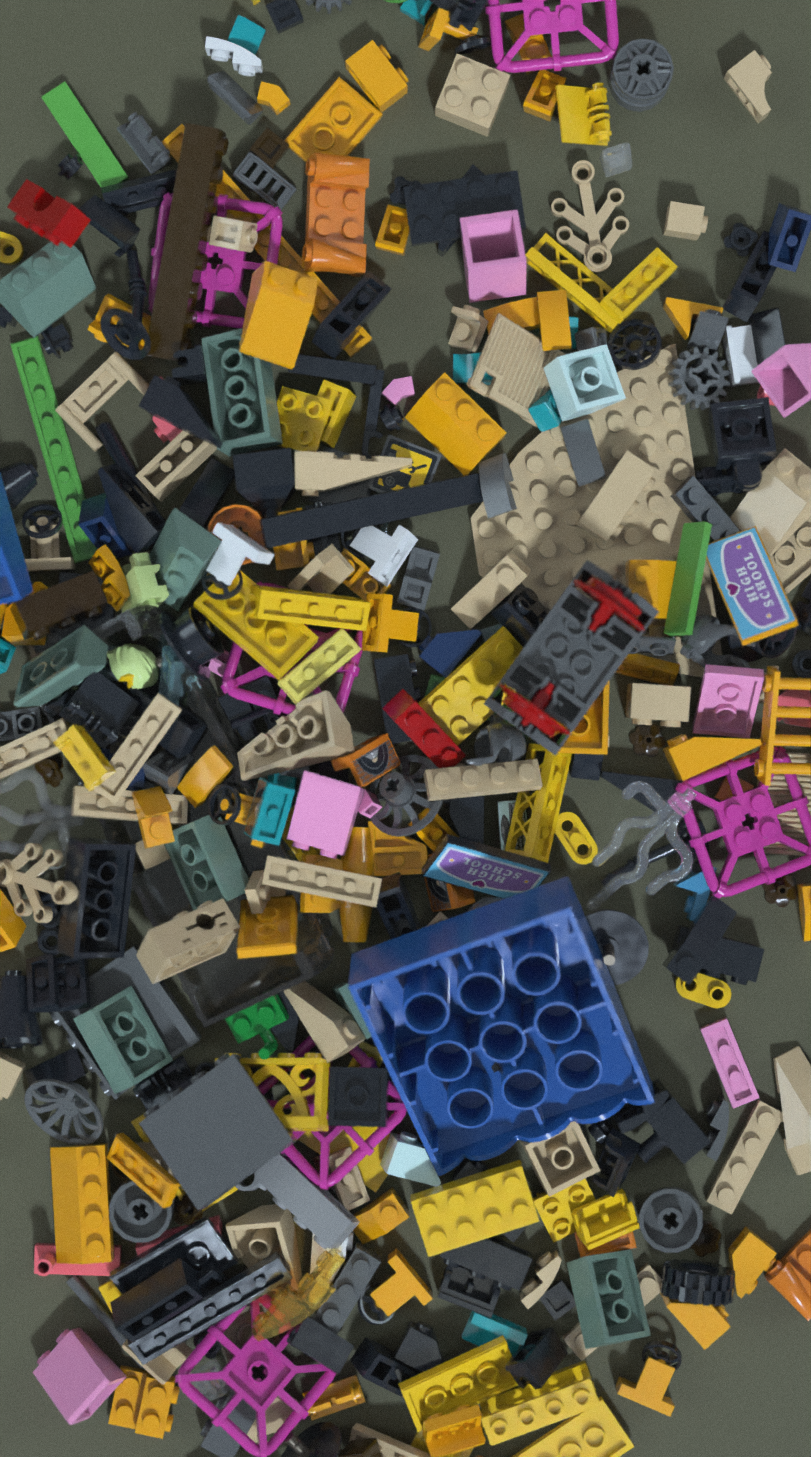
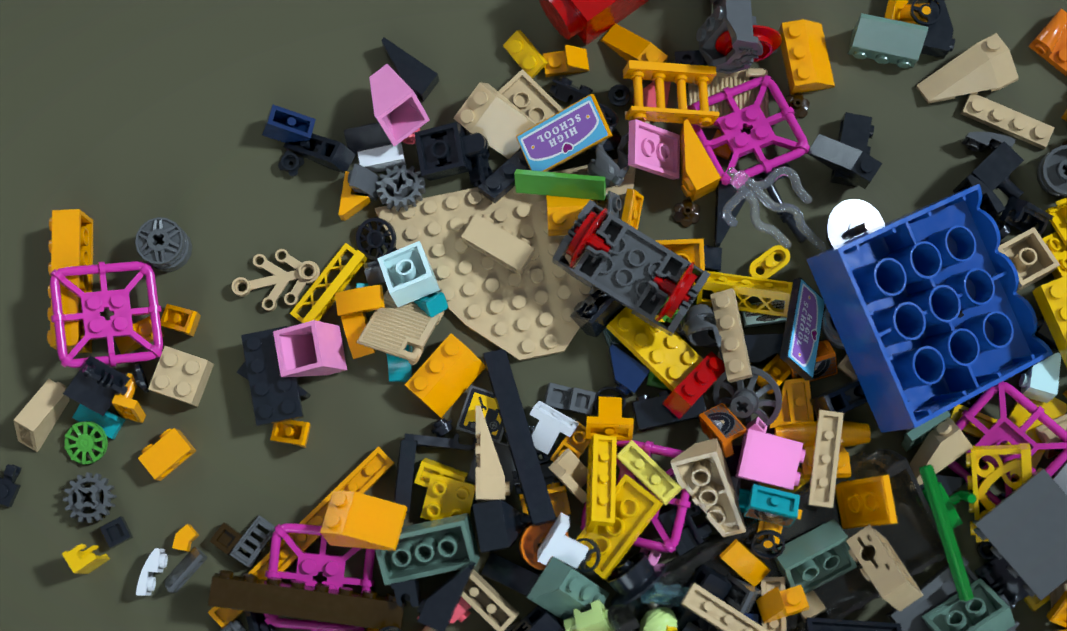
camera: 90 degrees left, 10 degrees down
(226, 1019) = (946, 533): none -> green axle
(233, 234) = (298, 562): tan bracket -> none
(247, 34) = (133, 562): teal slope -> none
(260, 894) = (837, 514): tan bracket -> none
(334, 123) = (209, 488): light orange tile -> none
(335, 214) = (279, 480): orange piece -> none
(350, 315) = (361, 463): black slope -> none
(358, 1097) = (998, 420): black plate -> none
(398, 196) = (253, 430): black plate -> none
(399, 389) = (418, 422): bright pink piece -> none
(468, 328) = (368, 369): tan bracket -> none
(491, 589) = (576, 338): tan slope -> none
(495, 485) = (493, 340): dark grey slope -> none
(583, 114) = (195, 288): yellow hinge -> none
(583, 452) = (464, 271): dark grey slope -> none
(616, 159) = (230, 261): clear slope -> none
(638, 285) = (330, 237): yellow plate -> none
(657, 702) = (659, 202): tan brick -> none
(685, 221) = (277, 205): tan brick -> none
(695, 903) = (807, 164): dark azure slope -> none
(703, 990) = (883, 156): yellow plate -> none
(729, 1062) = (935, 135): bright pink plate -> none
(748, 83) = (170, 163): tan arch -> none

